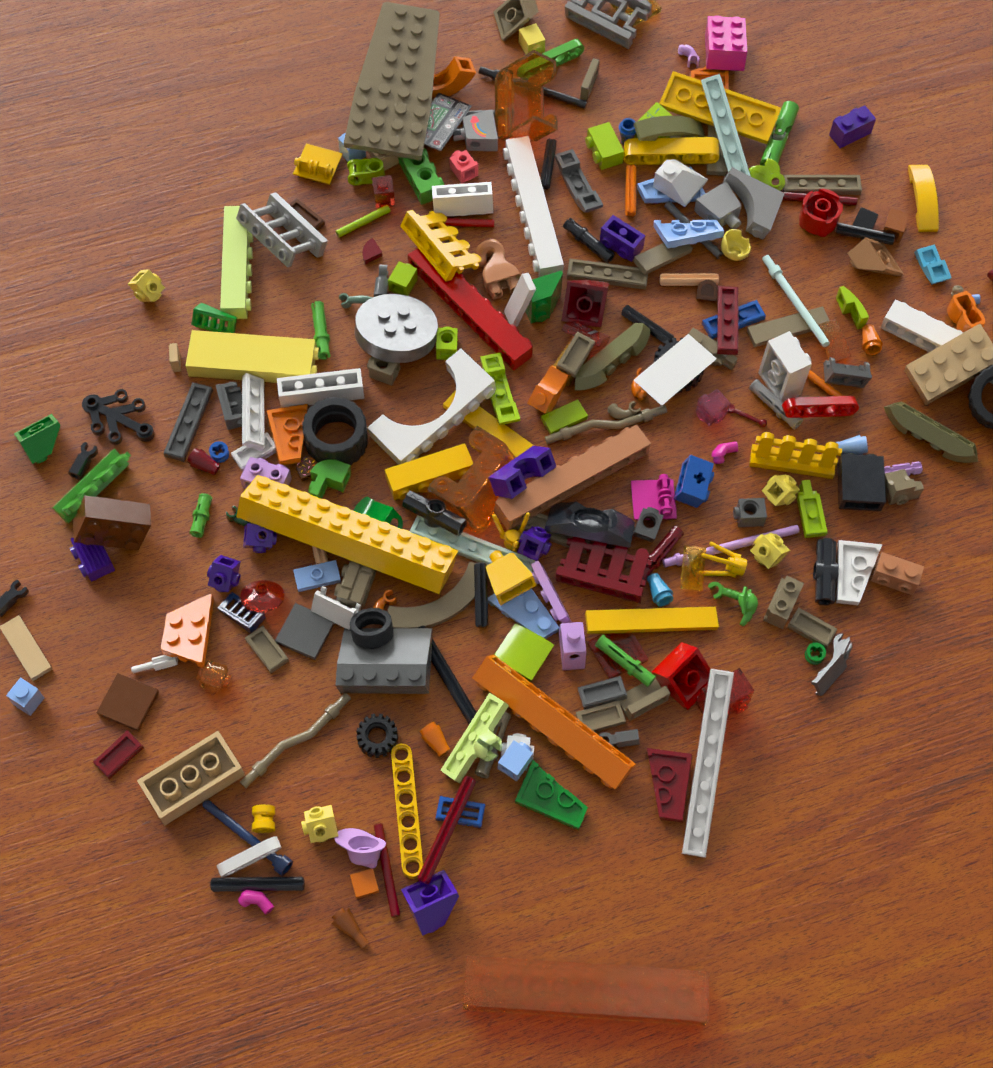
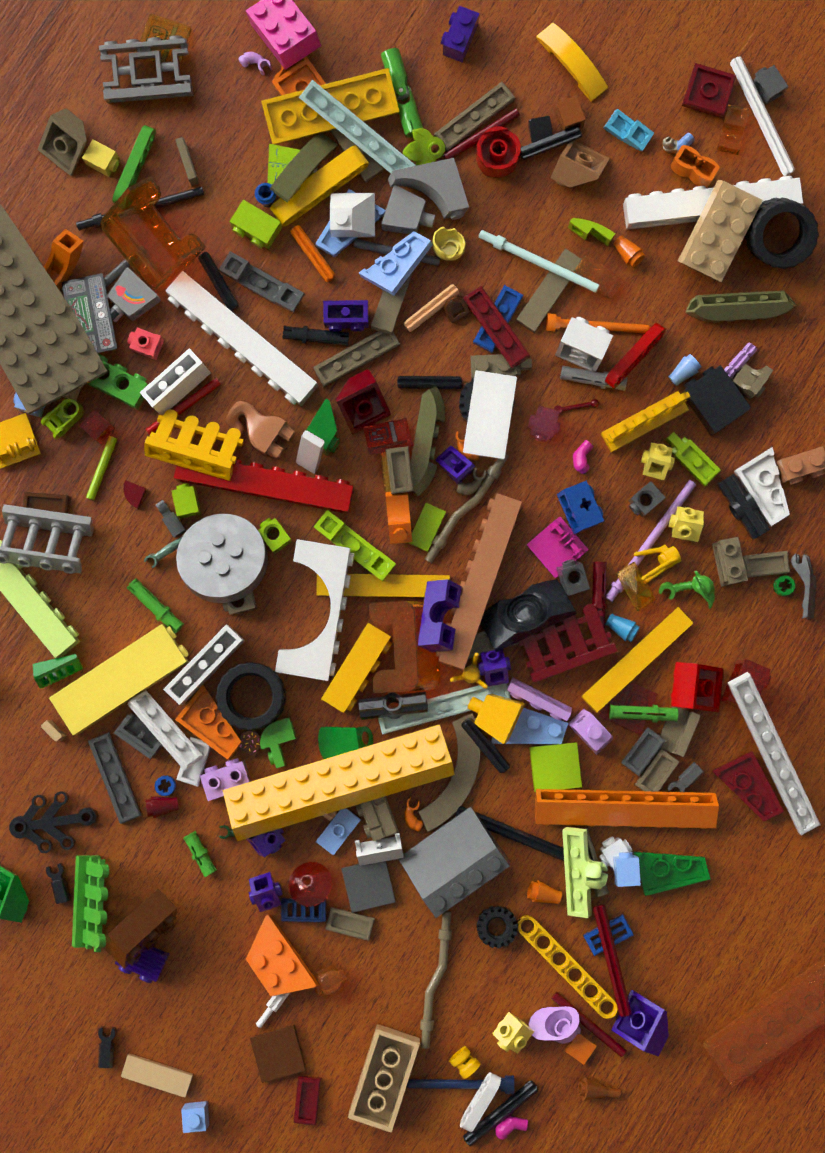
camera: 35 degrees left, 20 degrees up
(368, 617) = (409, 840): black tyre -> none
(621, 391) = (455, 464): none -> dark purple slope
(846, 374) = (632, 301): dark grey hinge -> none

